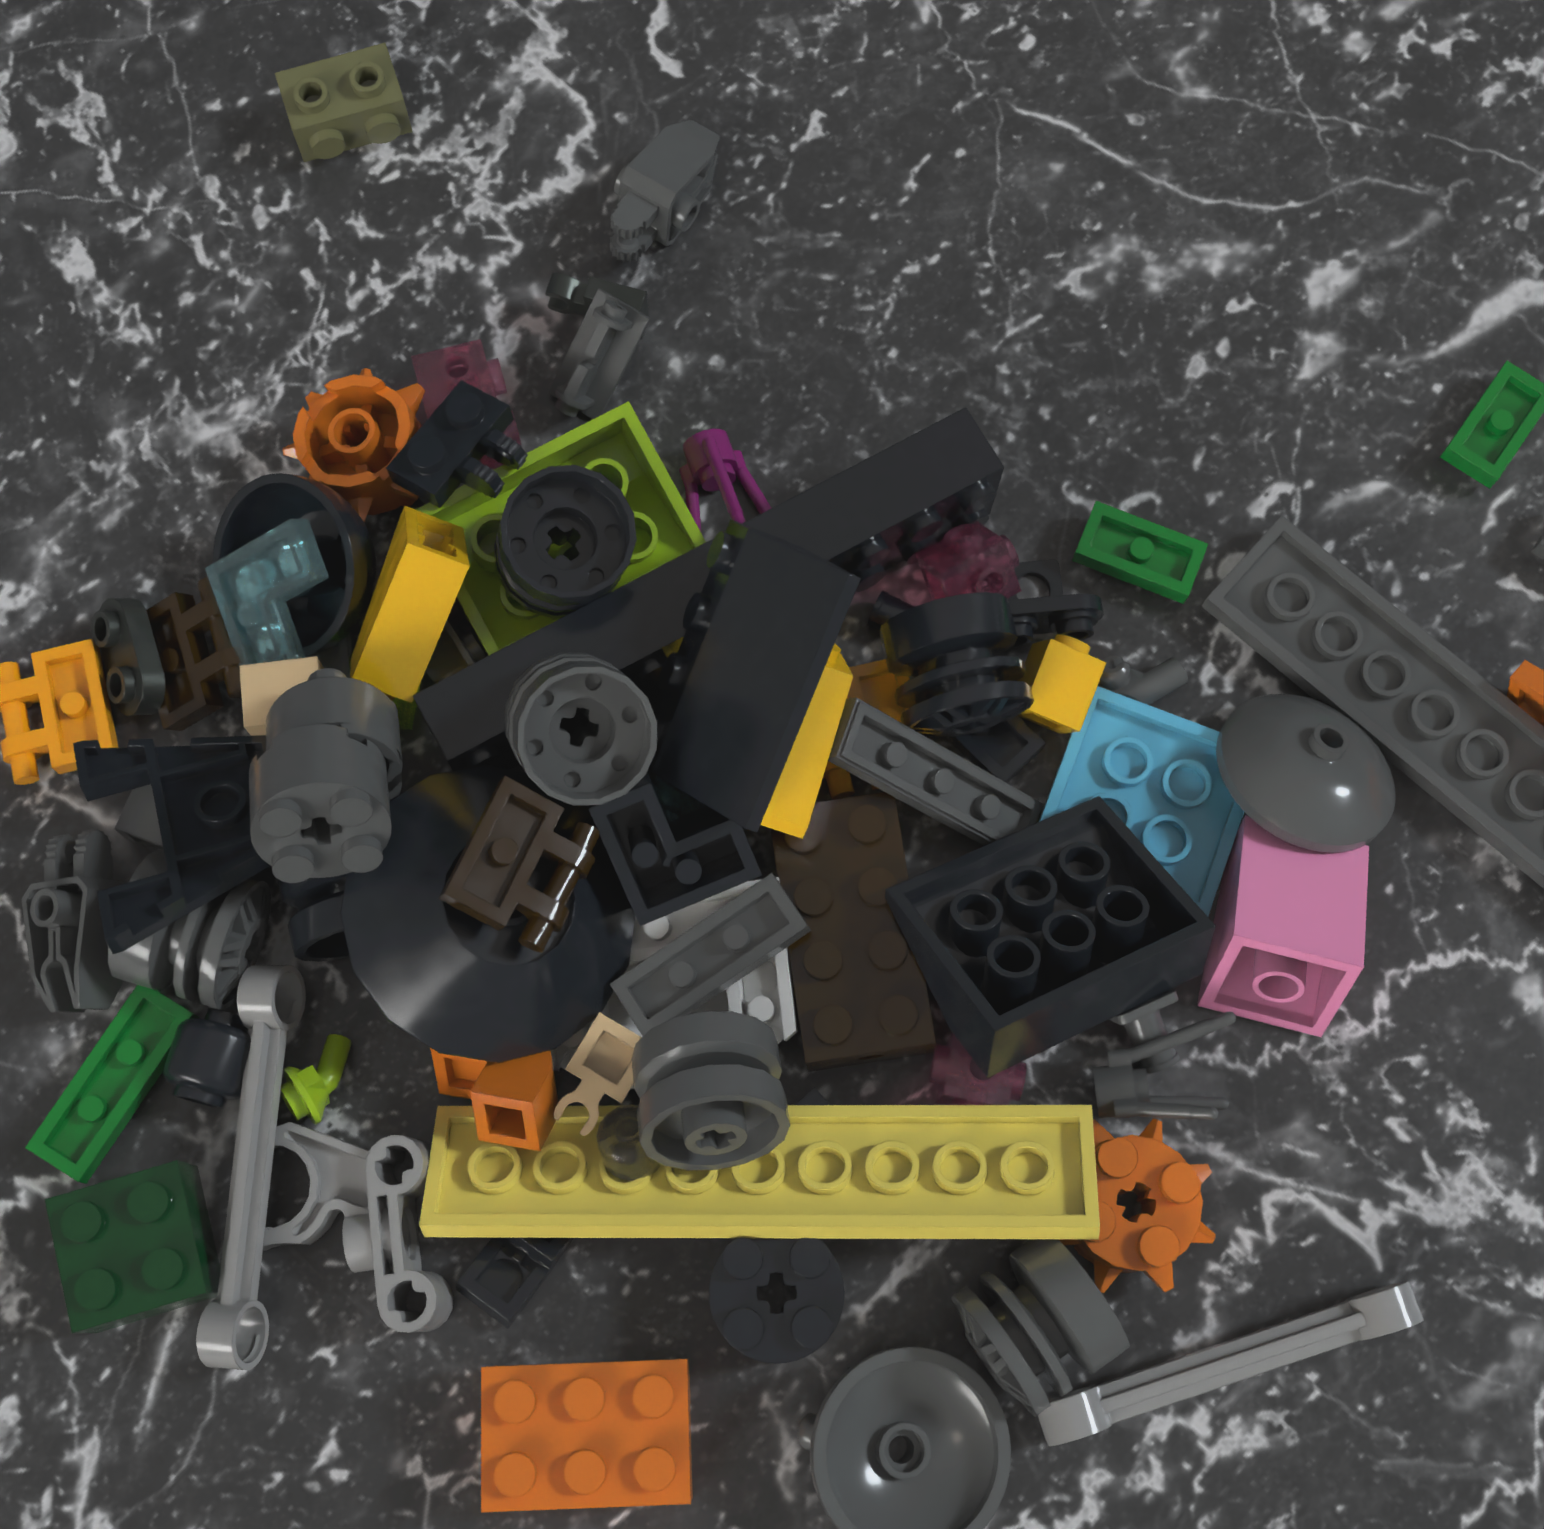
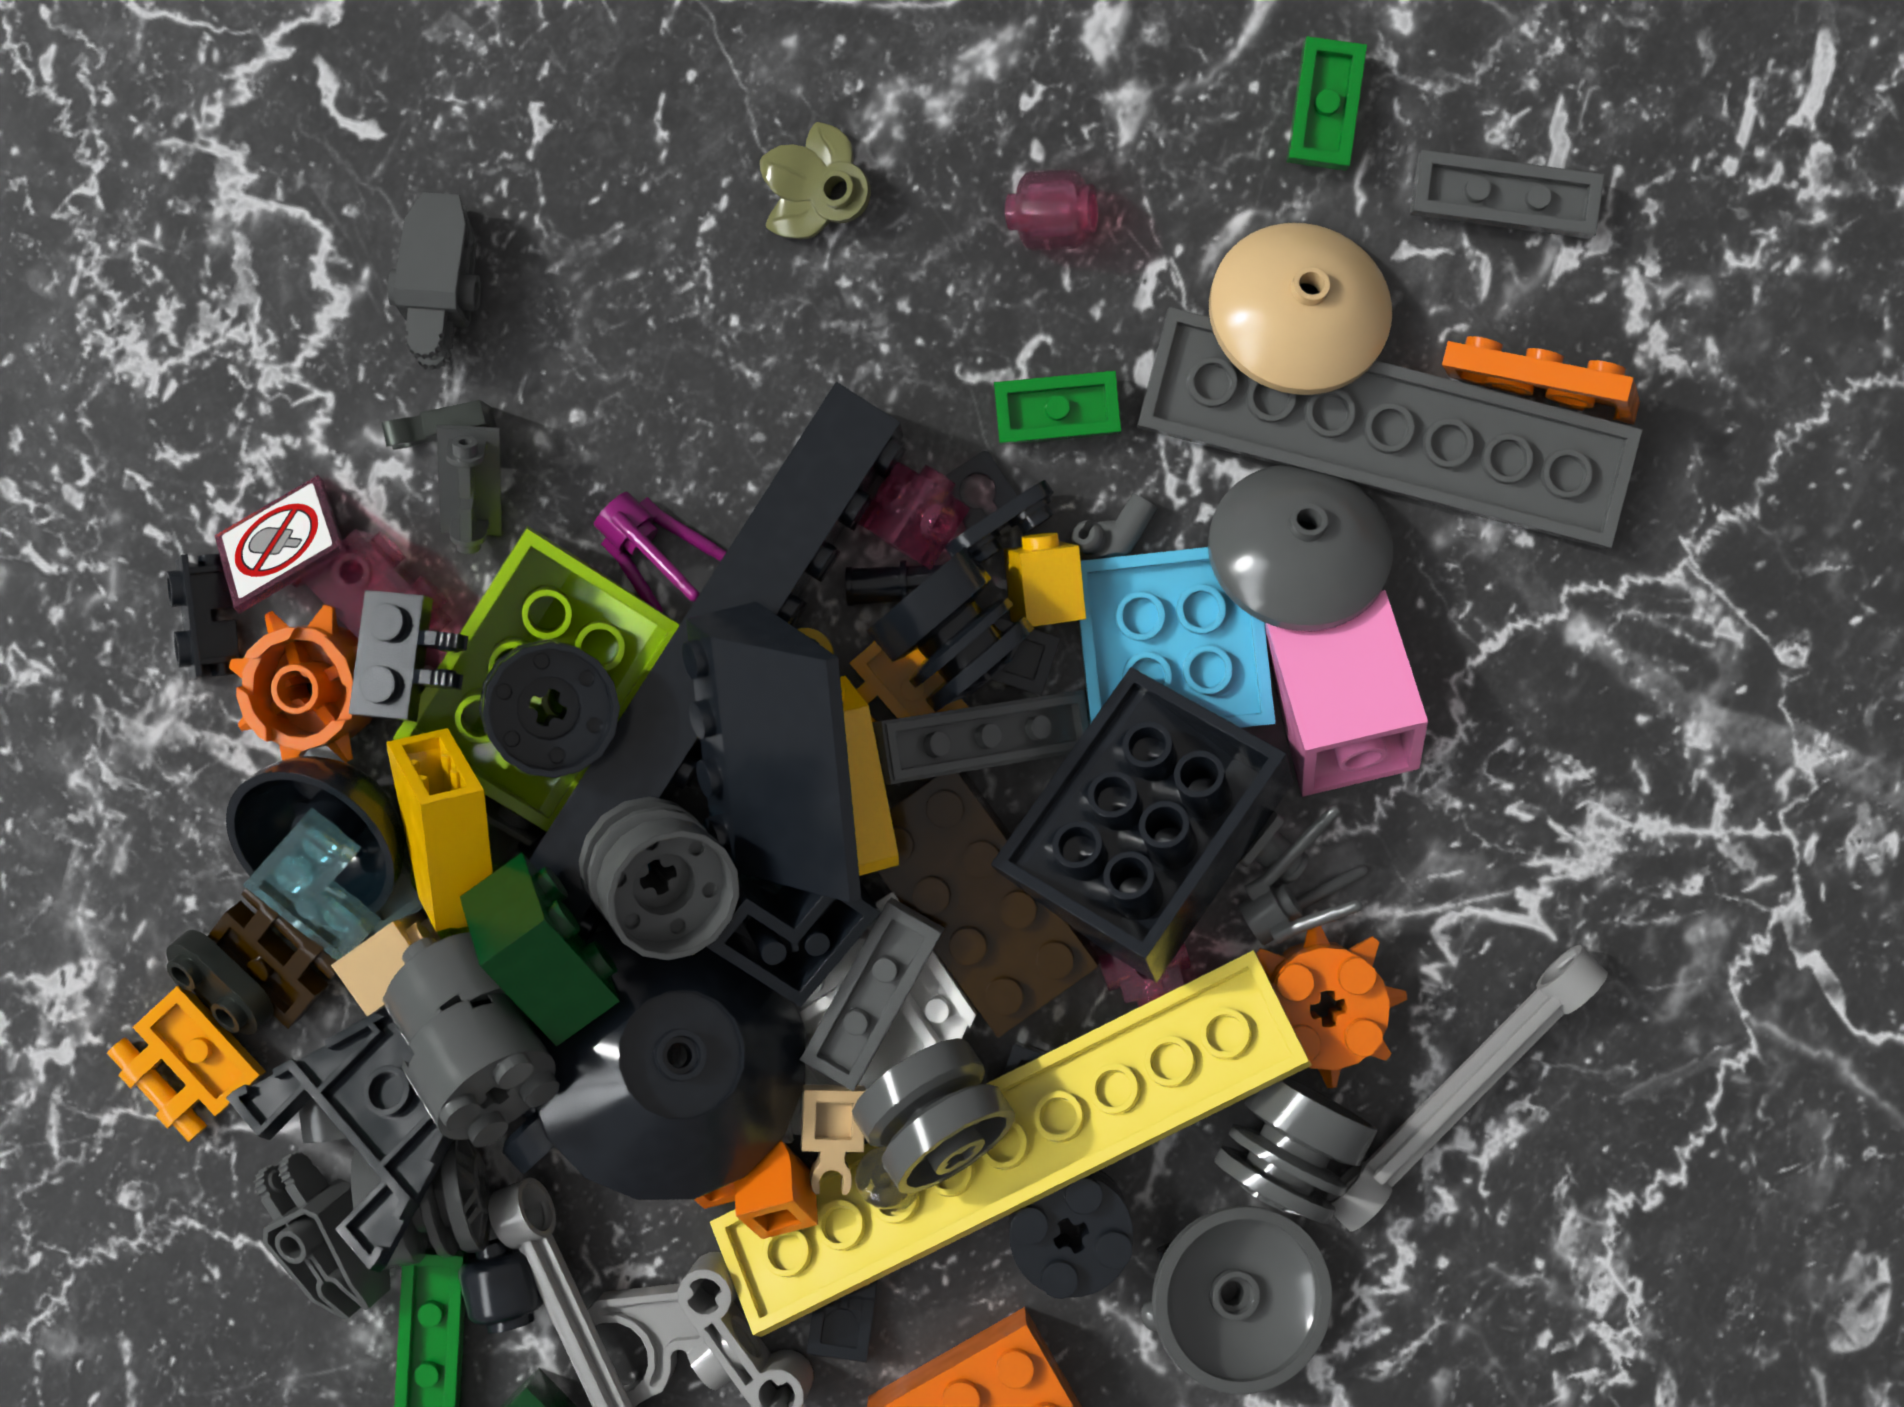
camera: 30 degrees left, 15 degrees up
(309, 1089) = (597, 1266): lime plate -> none
(317, 333) = (197, 593): none -> black hinge
(344, 102) = (85, 347): olive brick -> none
(408, 326) = (279, 544): none -> piece
(431, 732) = (533, 949): none -> dark green brick
(502, 856) = (659, 1031): dark brown plate -> none
(1015, 275) = (805, 182): none -> olive plate
(1217, 390) = (1052, 210): none -> clear pink head
(1399, 575) = (1294, 337): none -> tan dish

